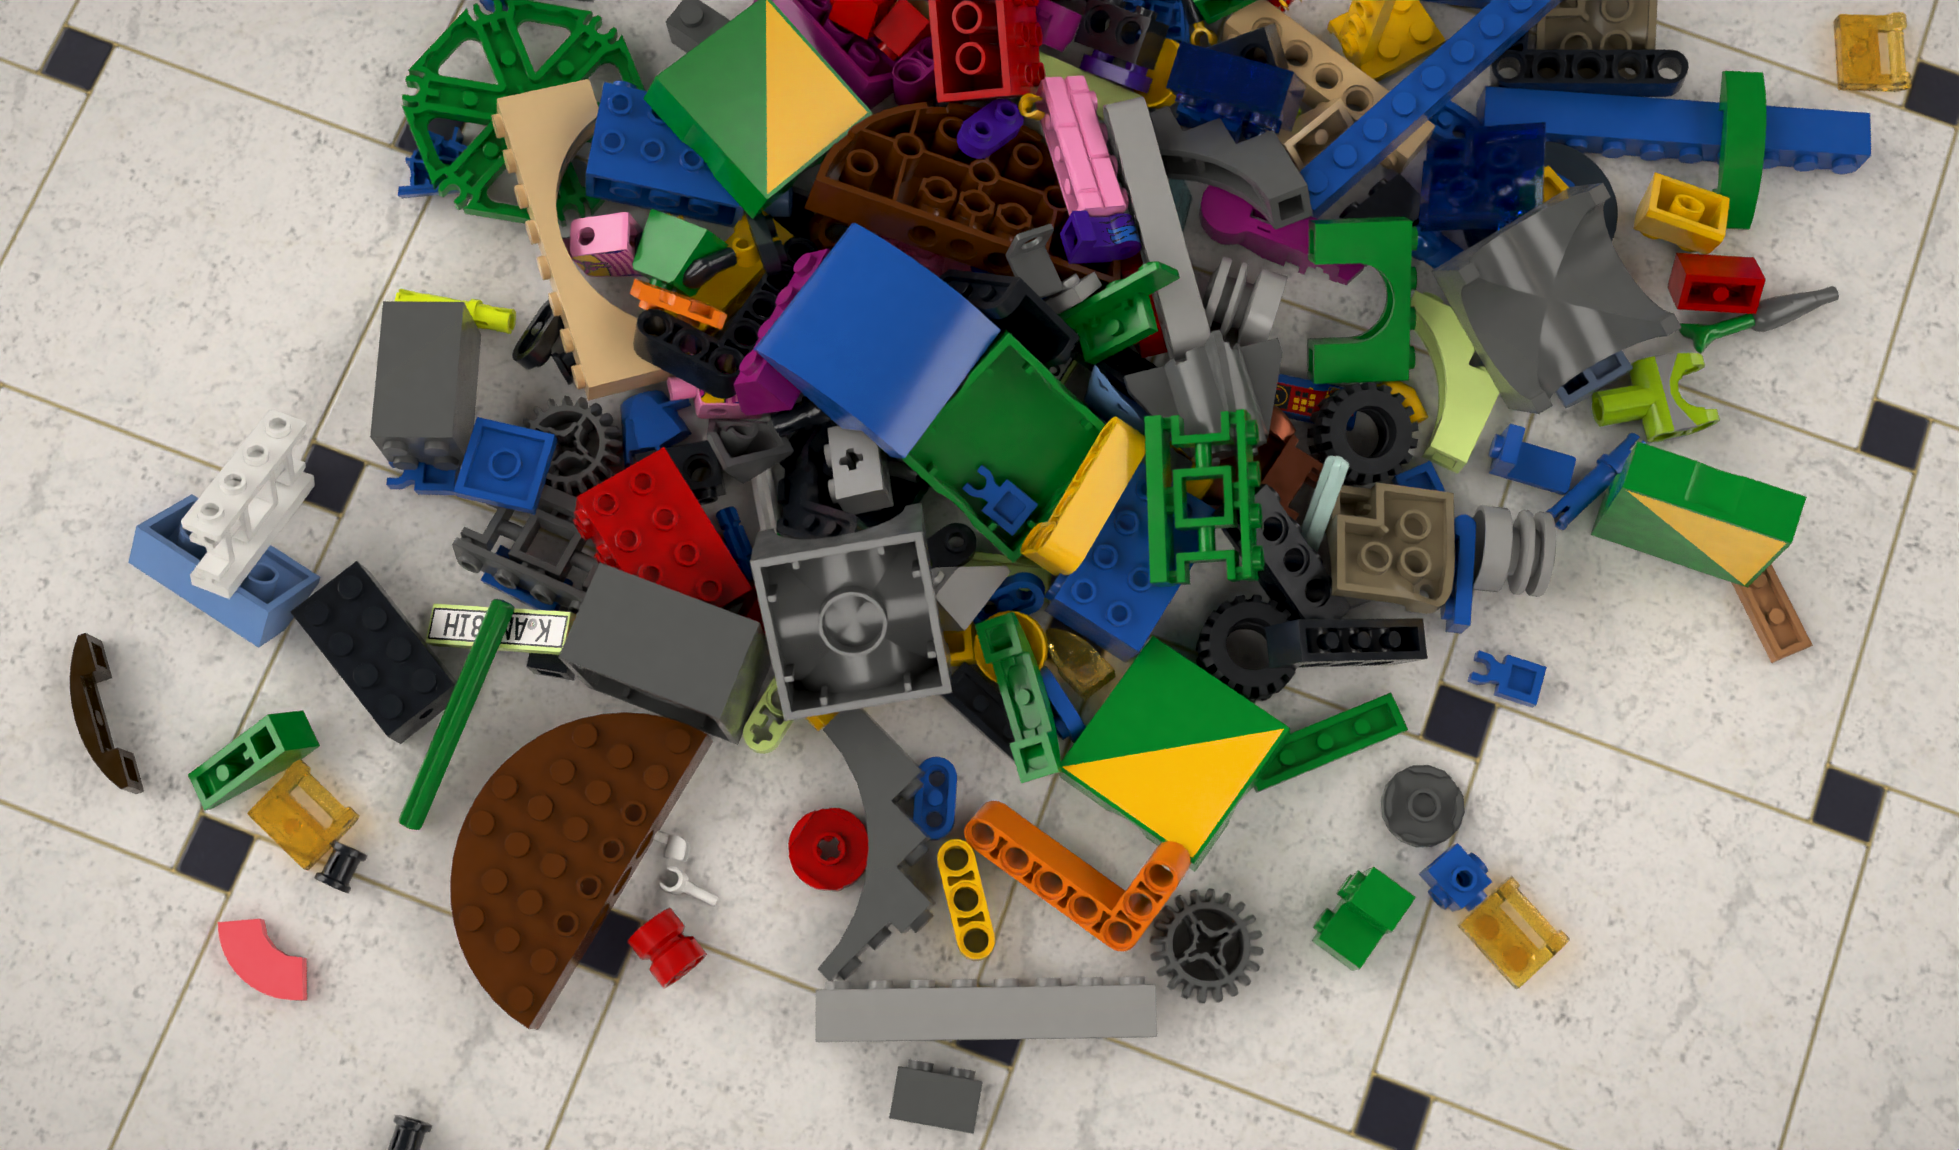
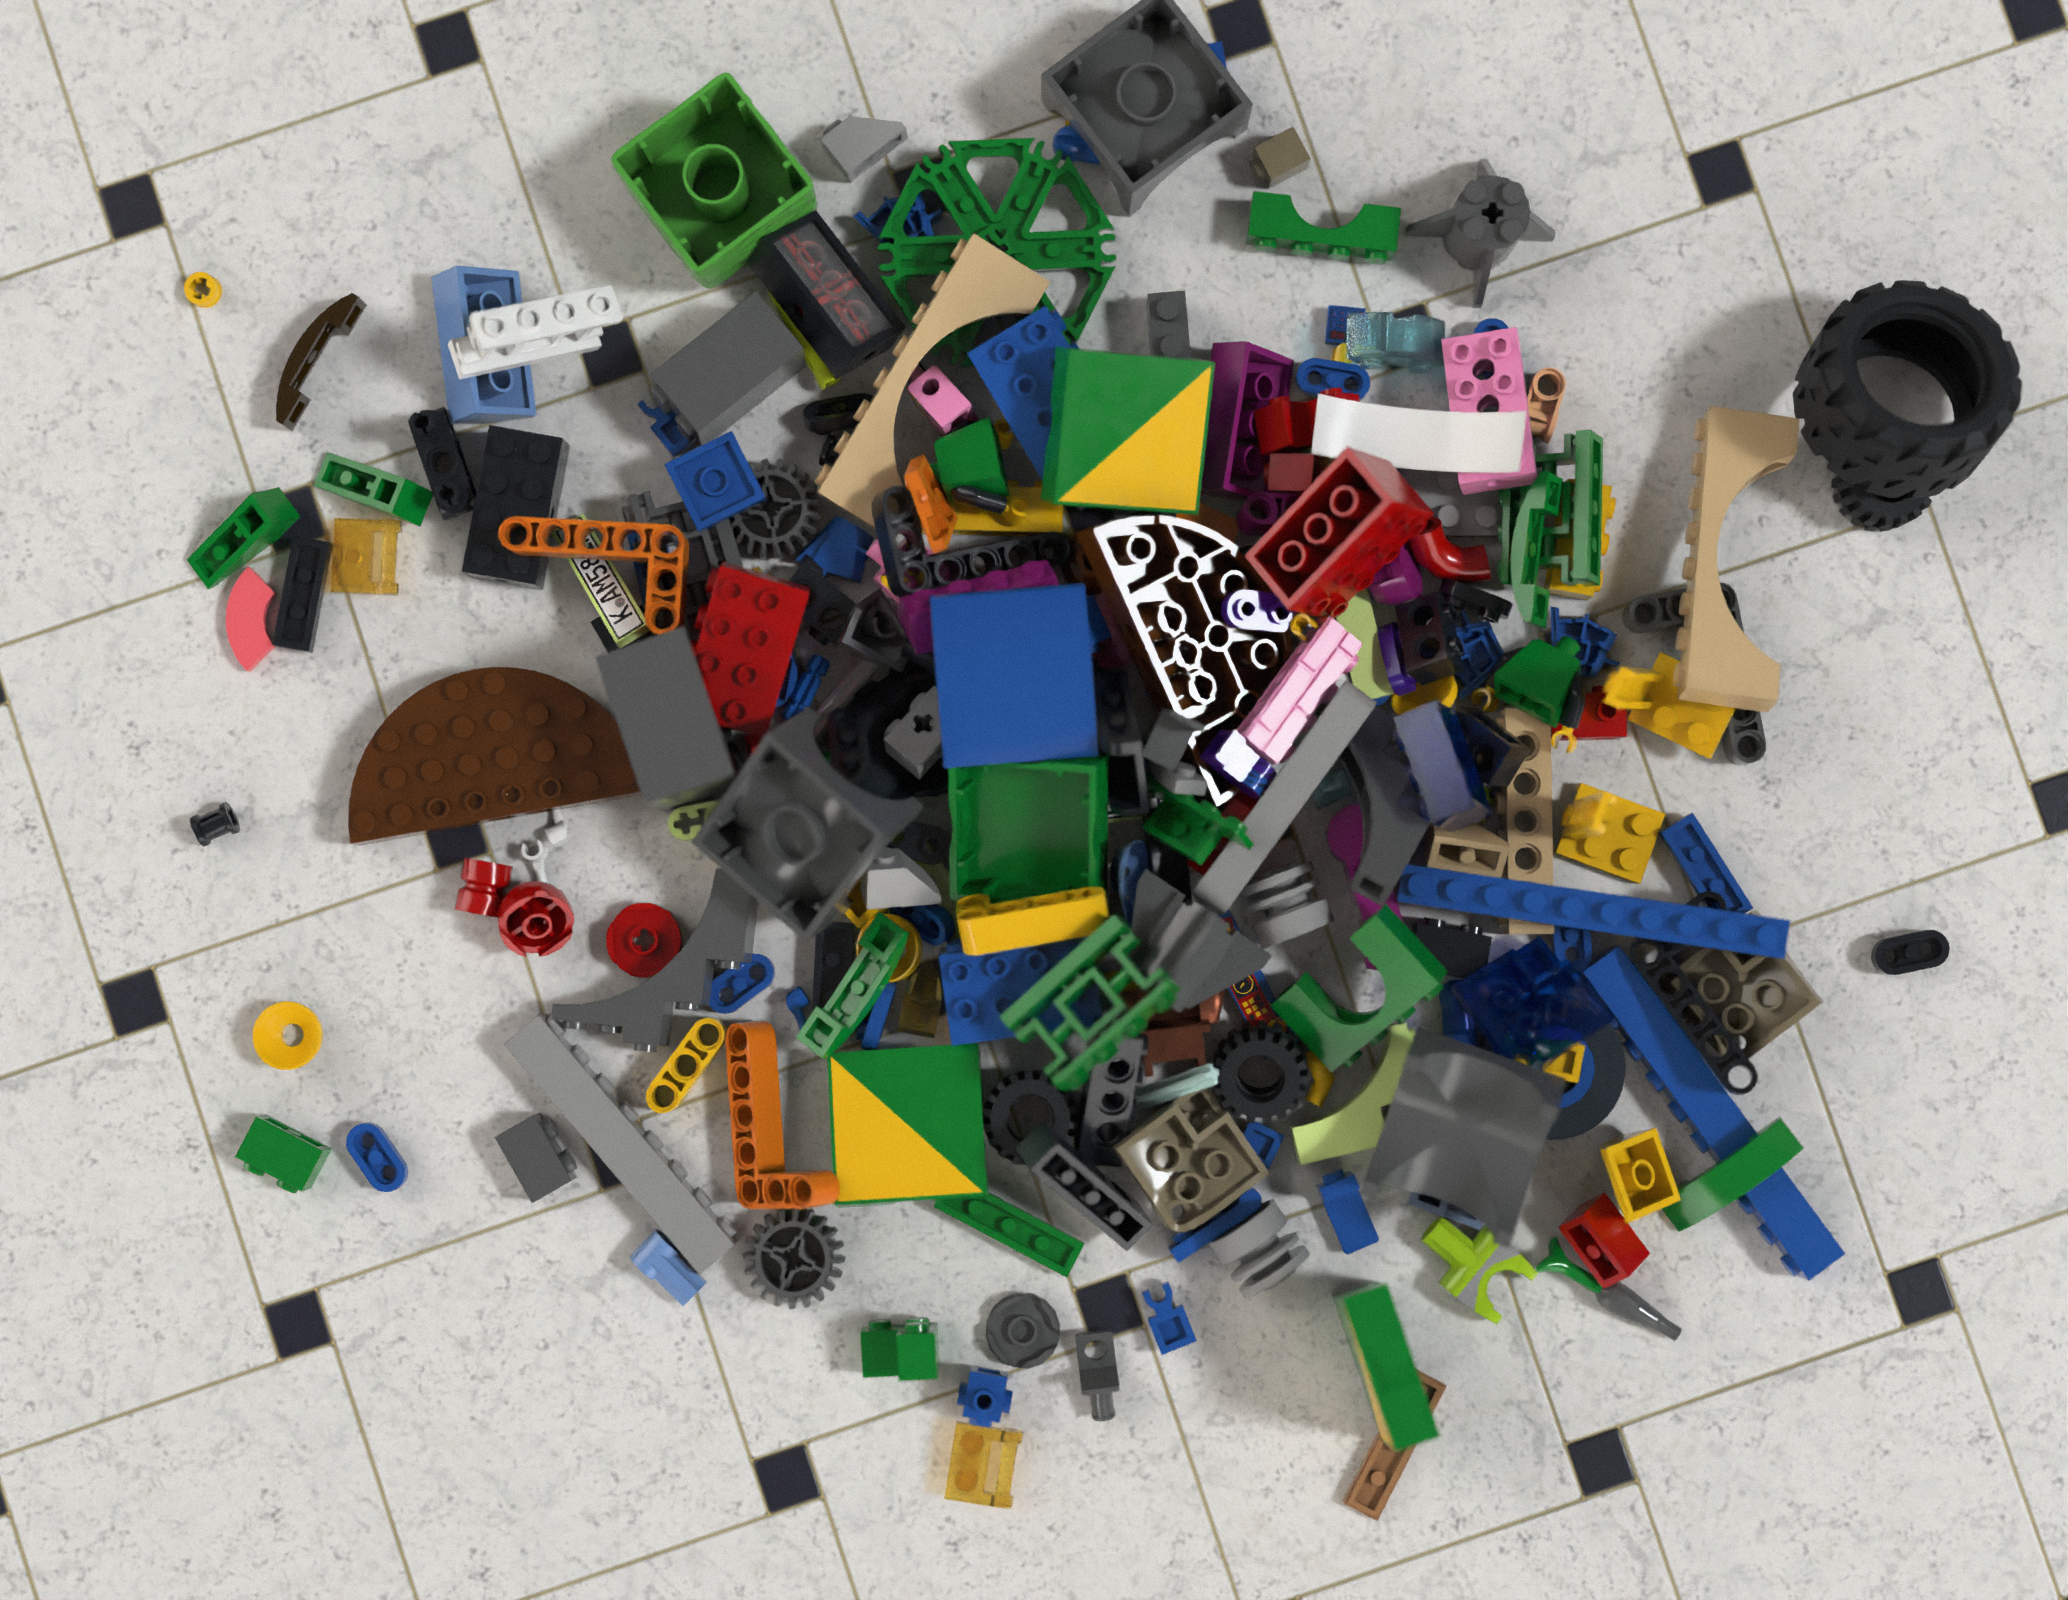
camera: 55 degrees right, 10 degrees up
(188, 904) = (243, 535): none -> green slope
(263, 671) = (436, 437): none -> black piece
(268, 262) = (714, 180): none -> bright green brick
(284, 895) = (302, 594): none -> black plate
(340, 866) = (353, 615): black bush -> none
(347, 144) = (861, 143): none -> light grey slope
(437, 260) = (825, 294): none -> brick
(456, 714) = (518, 602): green axle -> none
(483, 590) = (612, 549): none -> orange beam
(732, 922) = (535, 919): none -> red cylinder
(771, 253) = (1027, 532): black plate -> none
(988, 766) = (795, 1002): none -> blue hand
(1006, 503) = (988, 859): blue plate -> none
(1118, 1063) = (662, 1261): none -> medium blue piece
(1511, 771) = (1098, 1375): none -> dark grey bracket
(1593, 483) = (1374, 1269): blue pin -> none
(1859, 52) = (1904, 1205): clear yellow plate -> none

